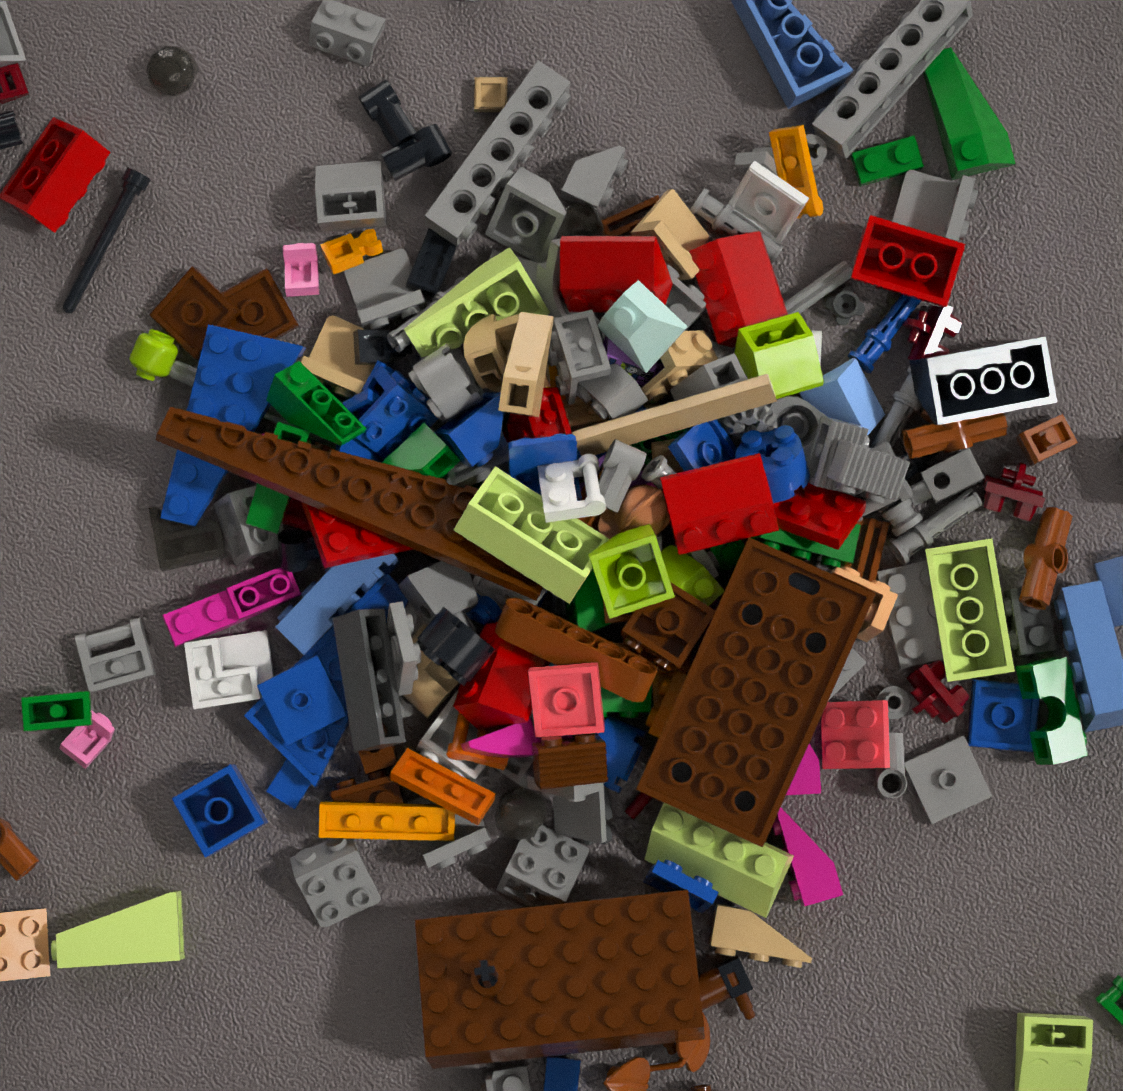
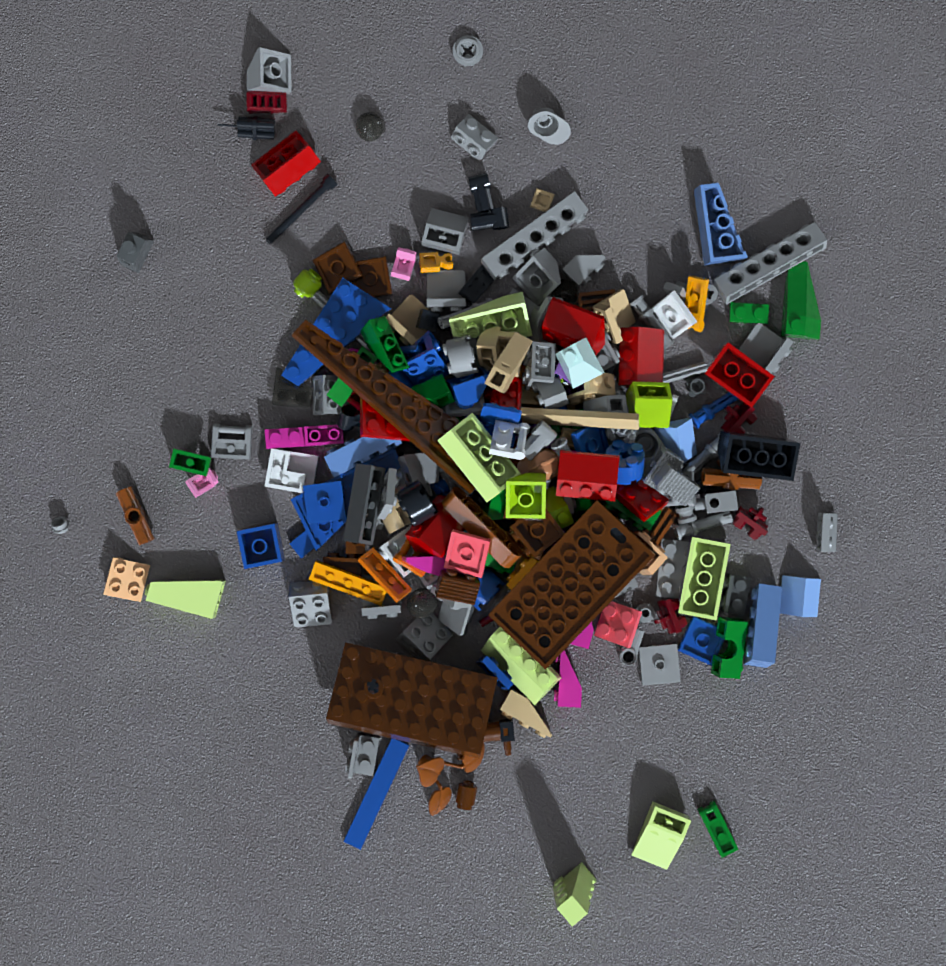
camera: 25 degrees right, 5 degrees up
(1045, 558) = (756, 564): dark orange piece -> none
(1046, 440) = (780, 499): dark orange slope -> none

